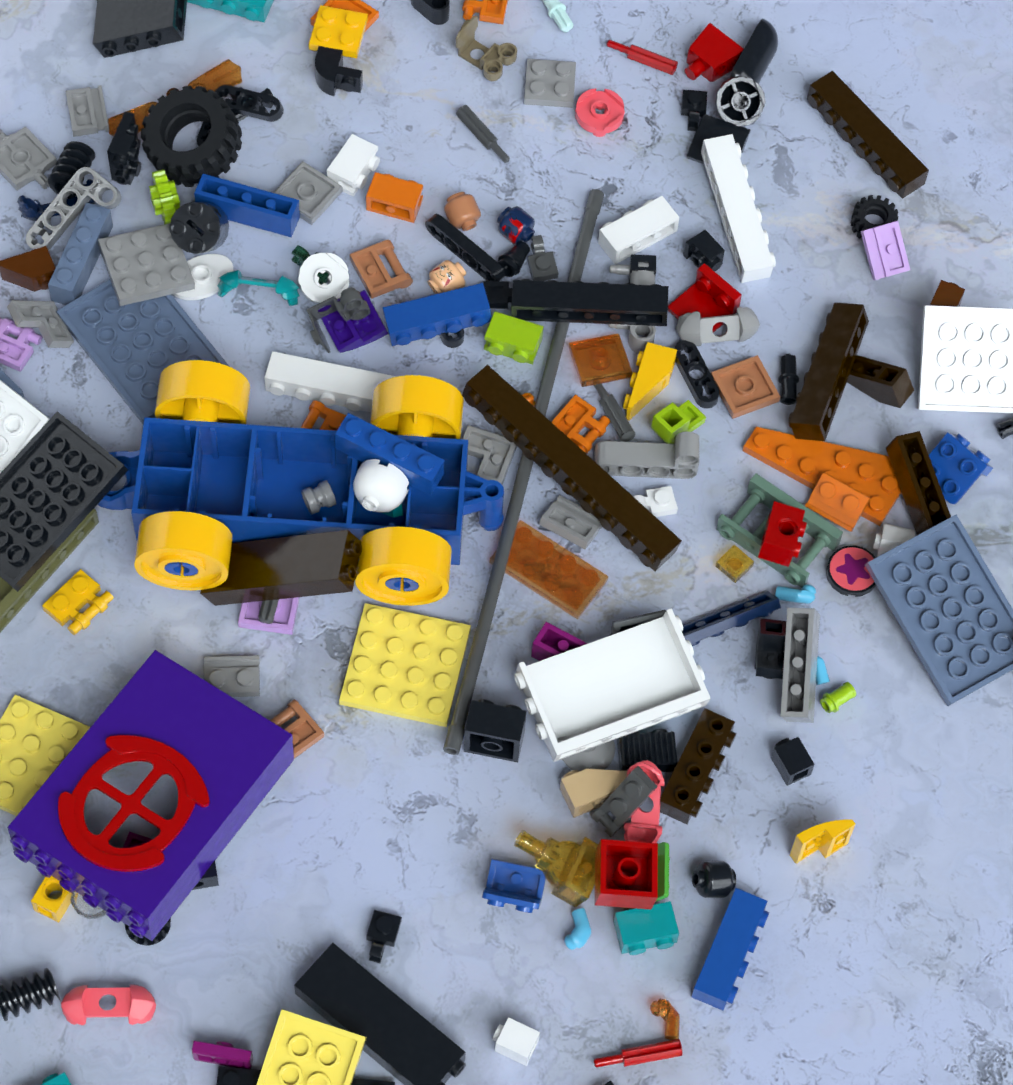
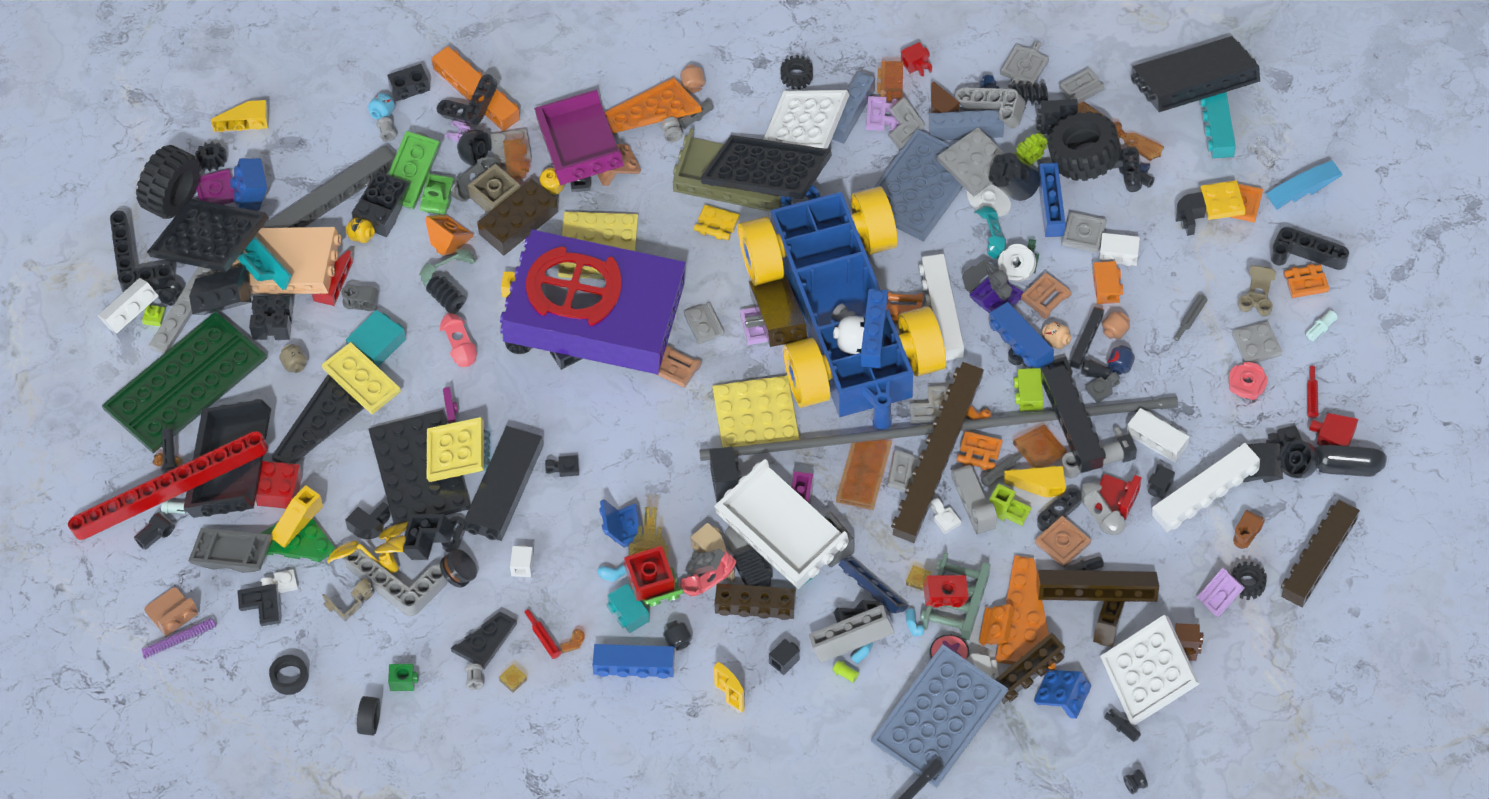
camera: 75 degrees right, 5 degrees down
(805, 192) = (1247, 529): none -> dark orange piece

